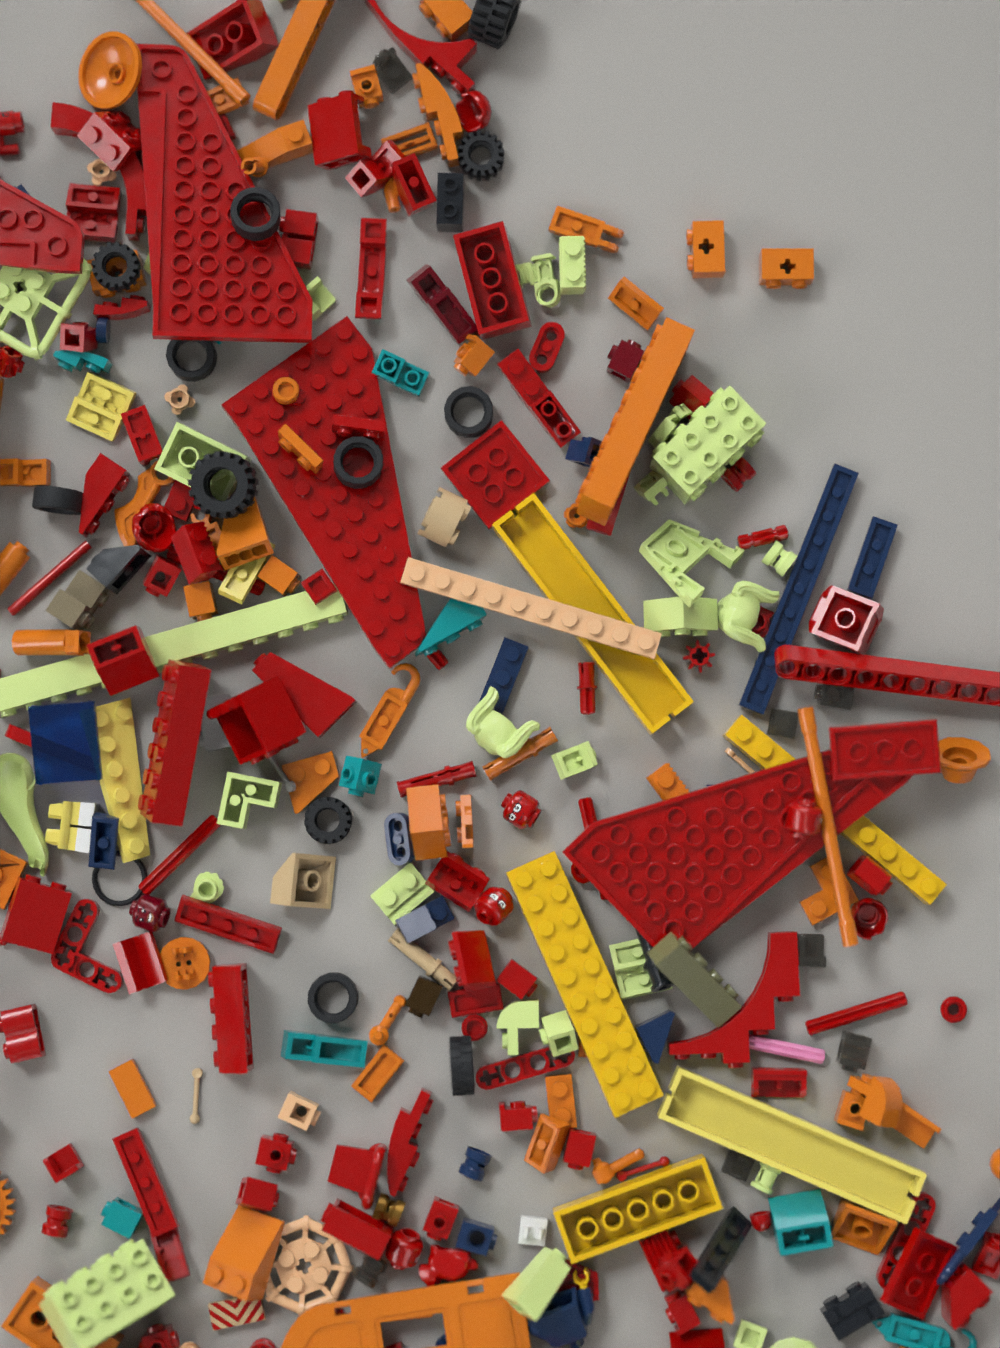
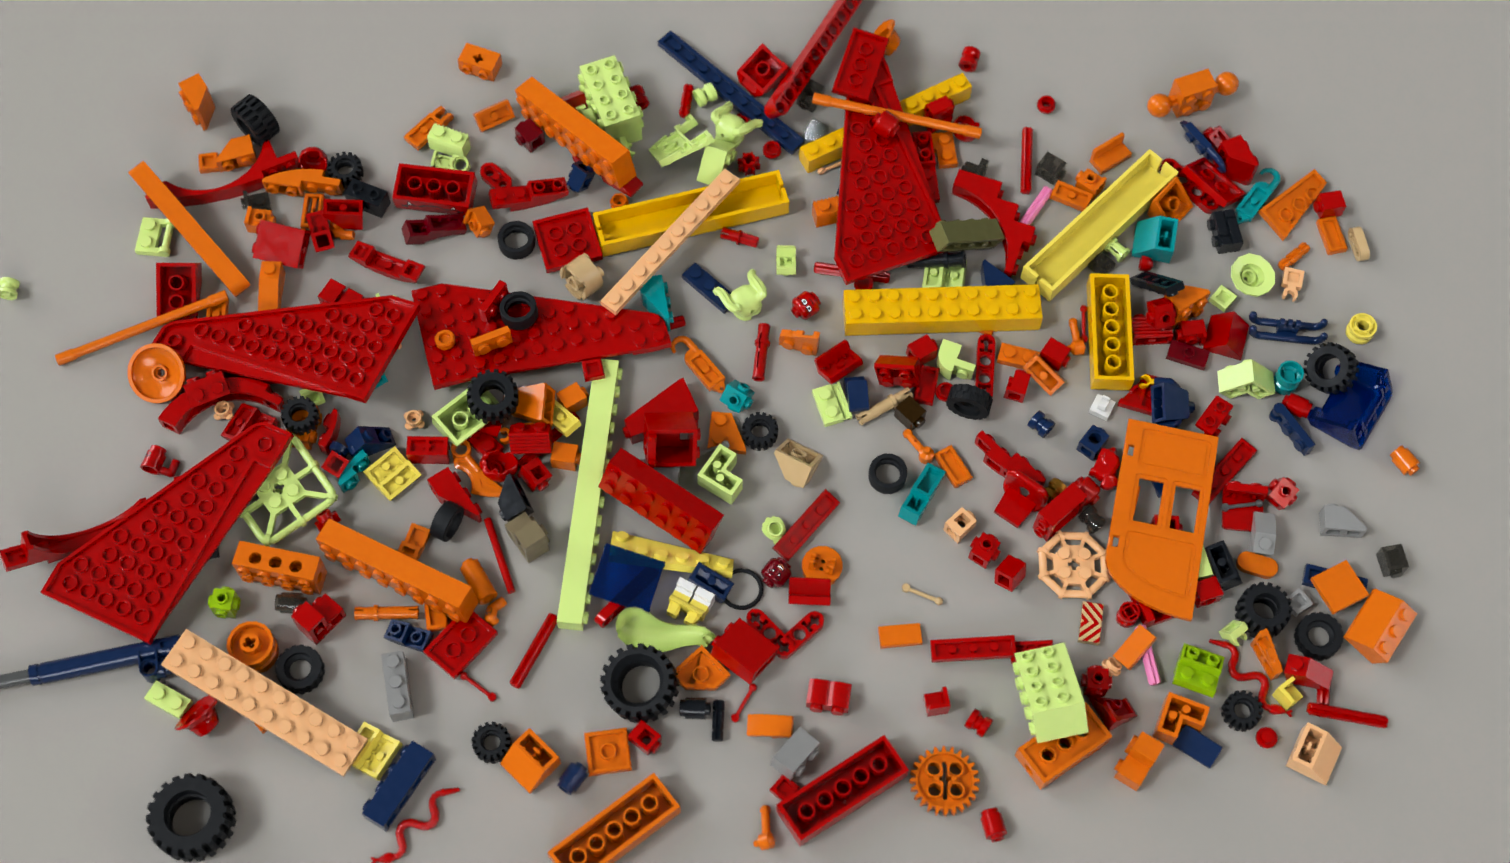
camera: 75 degrees left, 20 degrees down
(51, 642) = (548, 563): orange piece -> none
(121, 1217) = (992, 674): teal brick -> none
(123, 660) = (585, 511): red slope -> none
(129, 361) = (369, 439): none -> dark blue slope
(179, 855) = (742, 539): red axle -> none
(195, 375) = (392, 412): black tyre -> none
(232, 1018) = (876, 541): red slope -> none
(245, 1254) = (1050, 595): orange slope -> none
(255, 195) = (306, 297): black tyre -> none
(256, 166) = (278, 298): orange pin -> none
(398, 839) = (793, 389): plate -> none
(400, 373) = (470, 271): teal slope -> none
(428, 822) = (790, 359): orange brick -> none
(440, 1219) = (1072, 460): red brick -> none
(494, 906) = (865, 345): red head -> none
(528, 750) = (768, 302): orange pin -> none
(537, 1283) = (1141, 405): yellowish green slope -> none
(558, 1033) = (971, 335): yellowish green brick -> none
(651, 1316) = (1187, 355): none -> dark red plate
(734, 677) = (772, 150): none -> red plate
(778, 1082) = (1055, 218): red hinge -> none
(798, 260) = (515, 23): orange brick -> none
(800, 880) = (925, 150): none -> red slope
(823, 1091) = (1071, 196): none -> orange plate
(872, 557) = (728, 43): dark blue plate -> none
(882, 1099) = (1090, 156): orange brick -> none
(981, 883) = (969, 59): none -> red wheel

